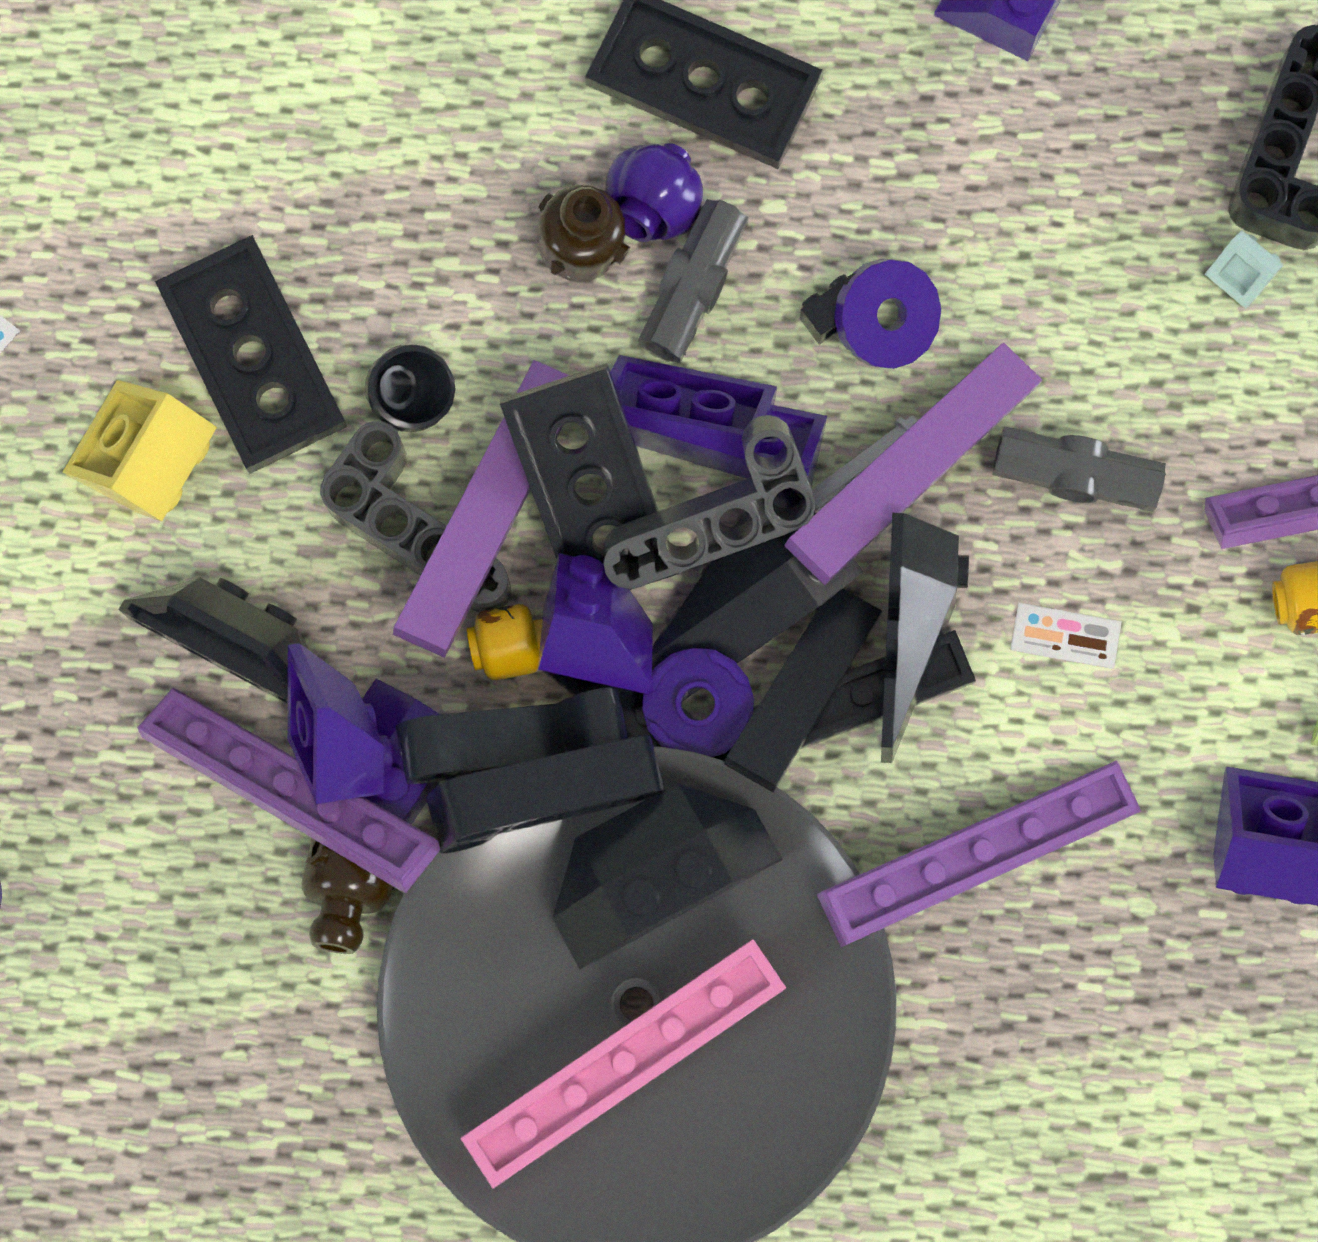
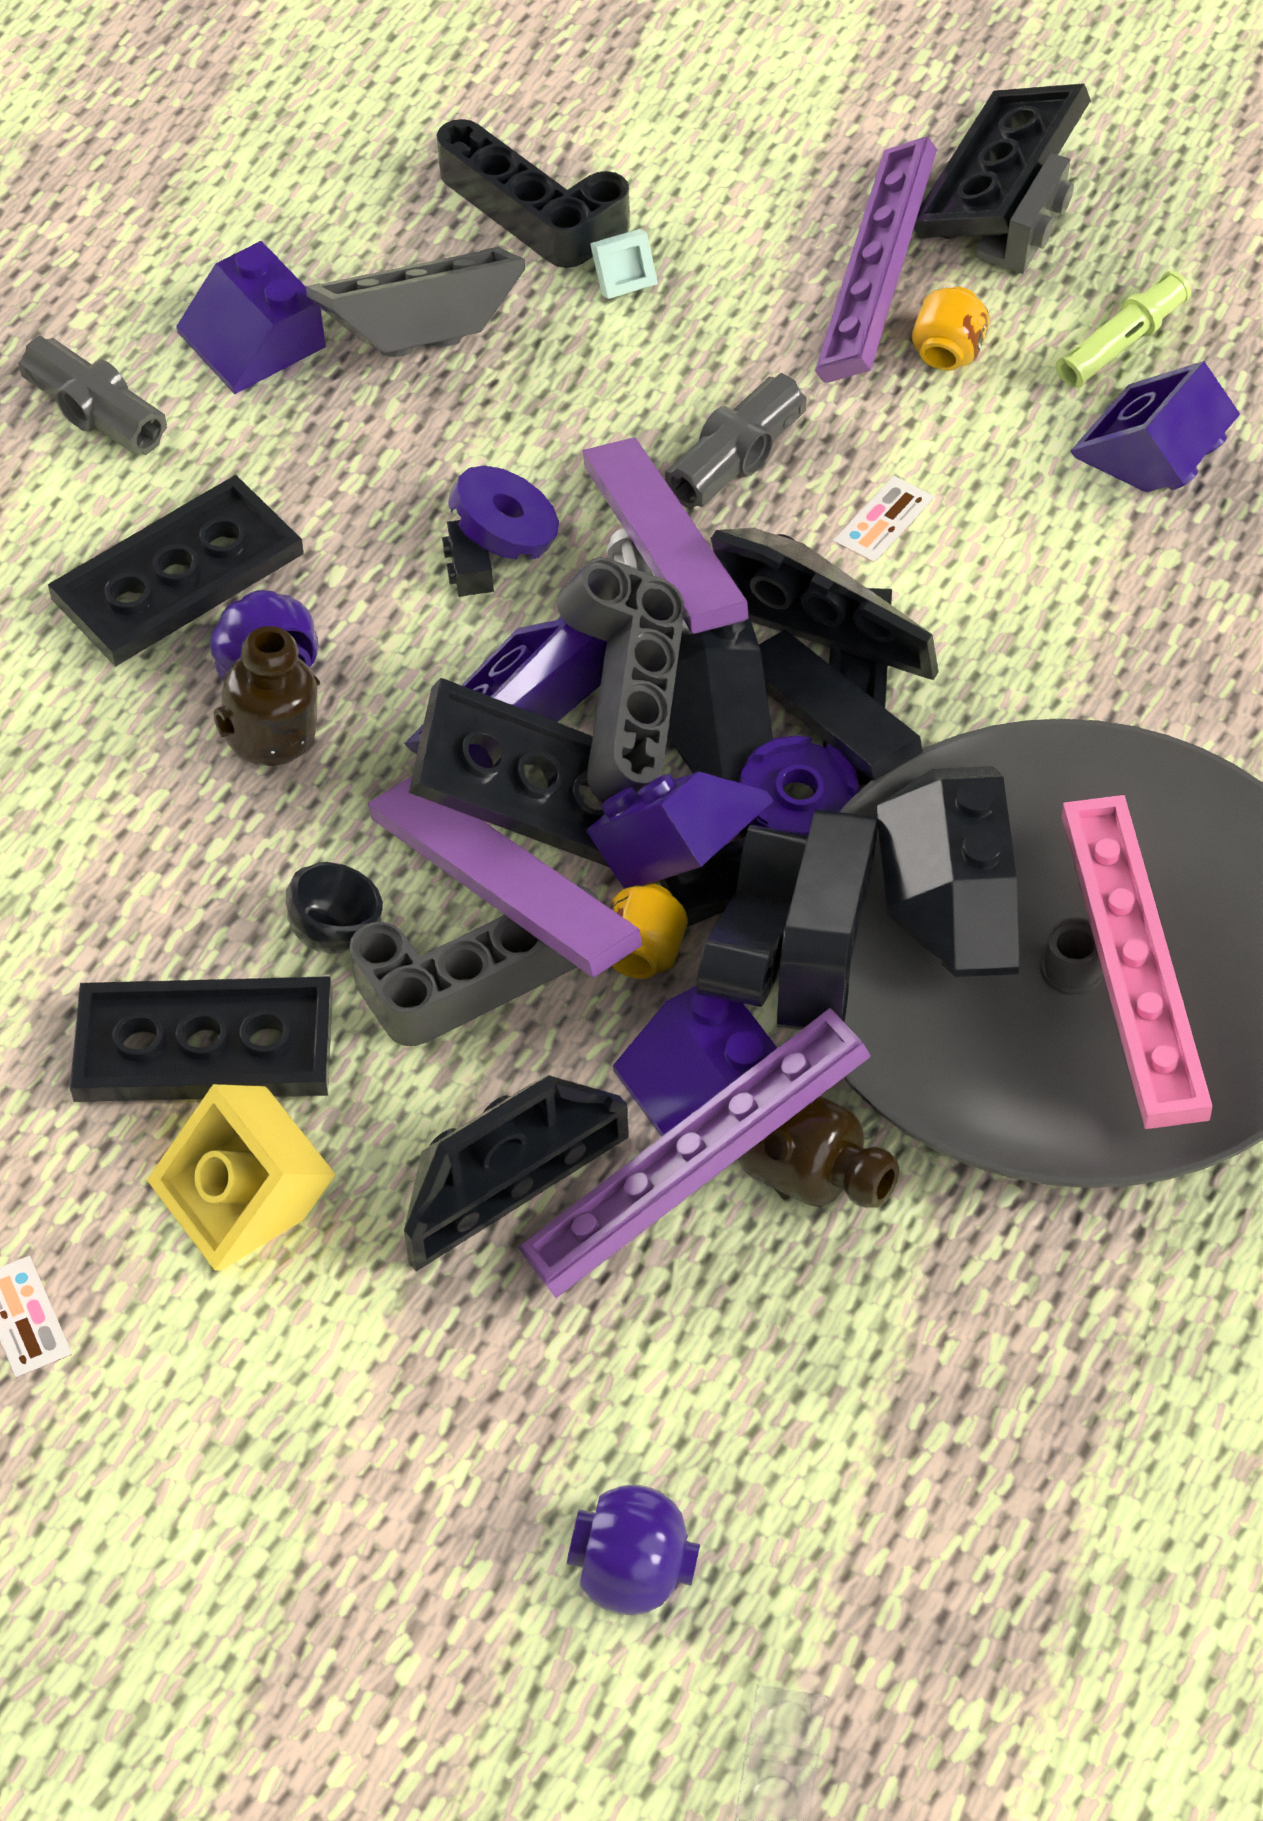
camera: 65 degrees left, 25 degrees down
(333, 731) = (661, 1059): dark purple slope -> none
(693, 281) = (371, 648): dark grey piece -> none
(978, 853) = (1062, 637): medium lavender tile -> none
(1093, 110) = (421, 301): none -> dark grey wedge

